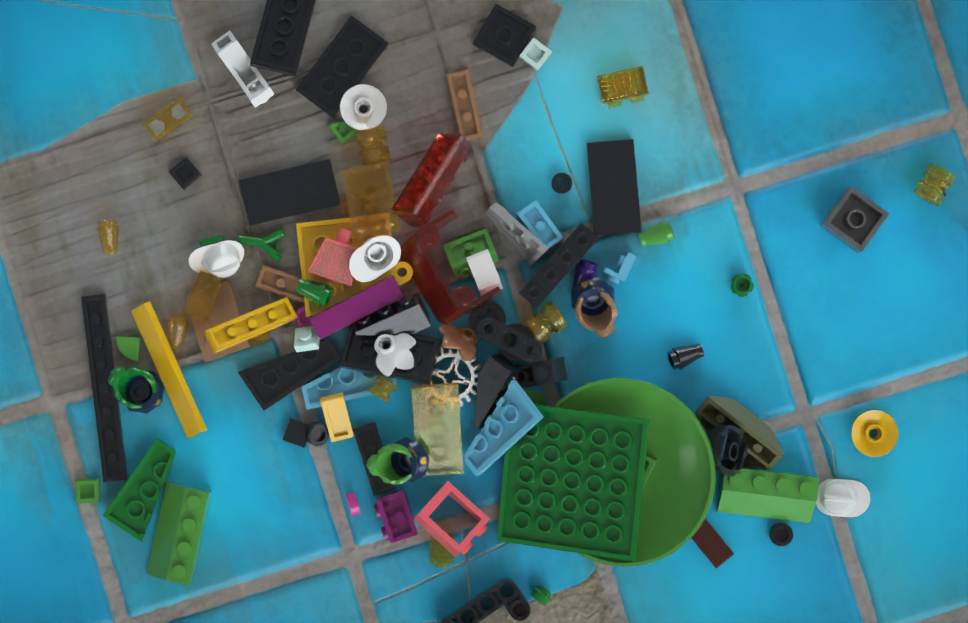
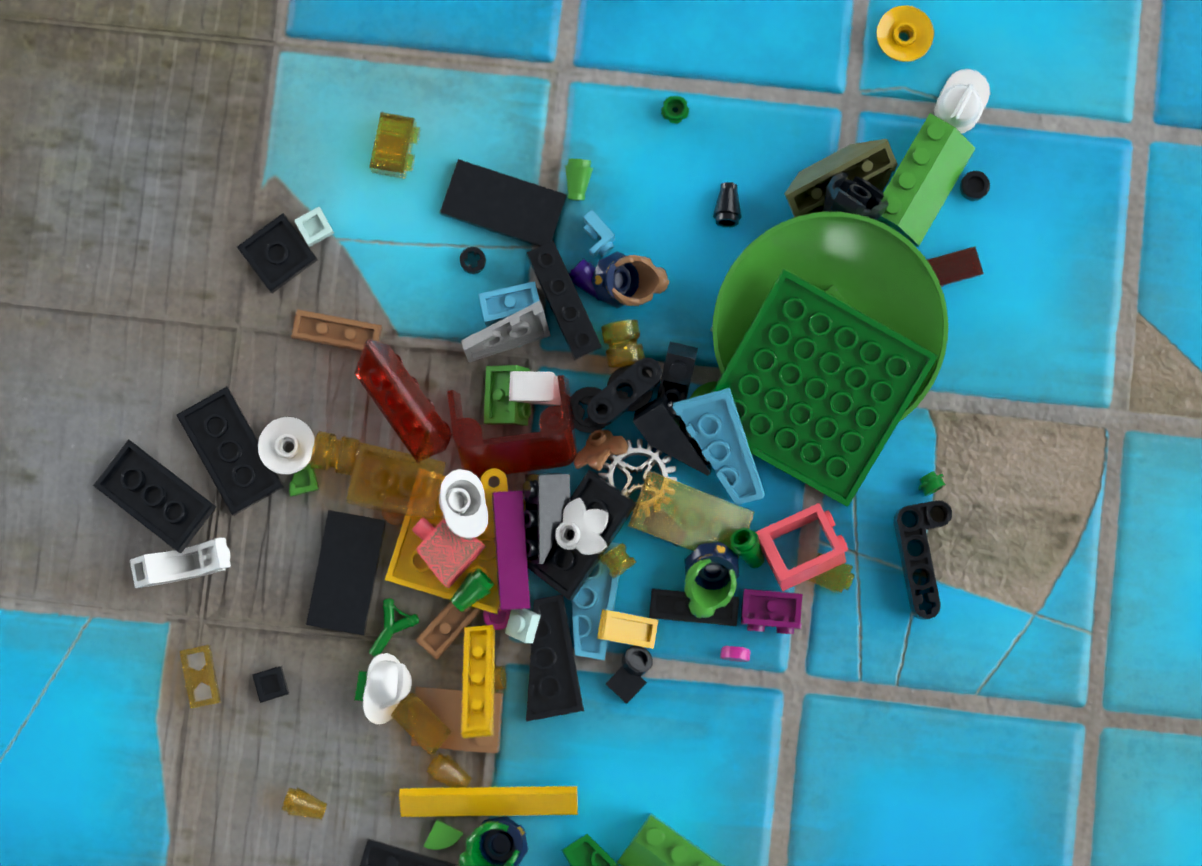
camera: 65 degrees left, 5 degrees down
(434, 479) = (747, 546): none -> green cone

